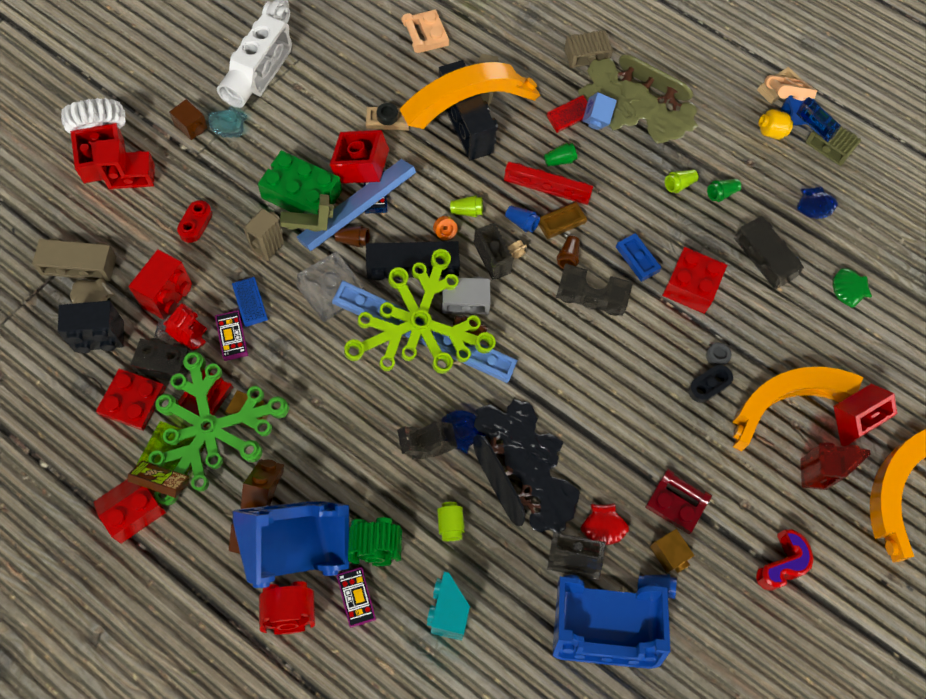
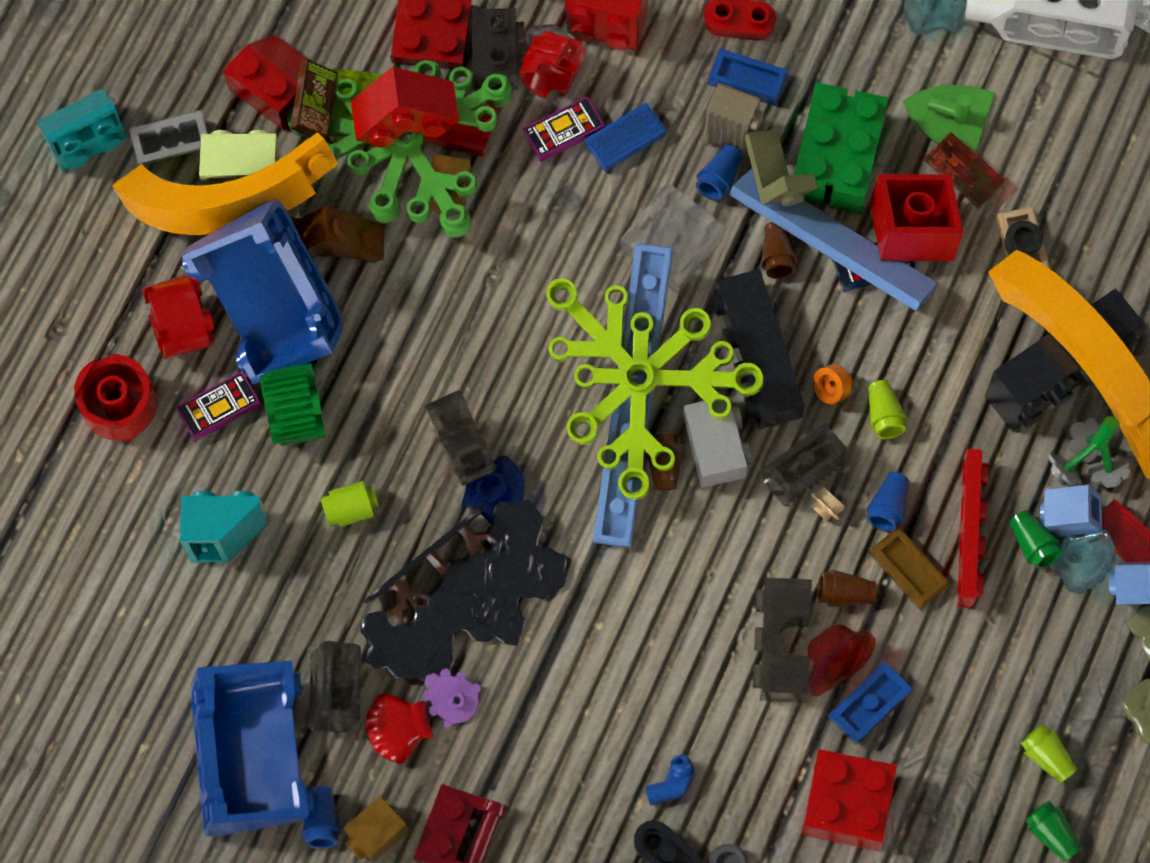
camera: 85 degrees right, 5 degrees up
(115, 653) = (82, 130): none -> teal slope
(148, 588) = (168, 137): none -> light grey brick
(188, 417) = (403, 103): none -> red brick
(189, 539) = (234, 156): none -> yellowish green brick
(217, 562) = (210, 207): none -> light orange arch
(231, 228) = (749, 76): none -> blue tile
(293, 255) = (718, 174): none -> blue cone
(297, 132) = (950, 109): none -> bright green shield
(317, 668) = (109, 378): none -> red brick
(327, 135) = (968, 171): none -> clear red tile
(528, 114) = (1091, 440): none -> light grey plant
(551, 131) = (1072, 510): none -> medium blue brick
(580, 133) = (1085, 561): none -> clear light blue animal
(591, 487) = (451, 697): none -> medium lavender piece
(608, 264) = (837, 656): none -> clear red piece
(666, 370) = (676, 782): none -> blue arm

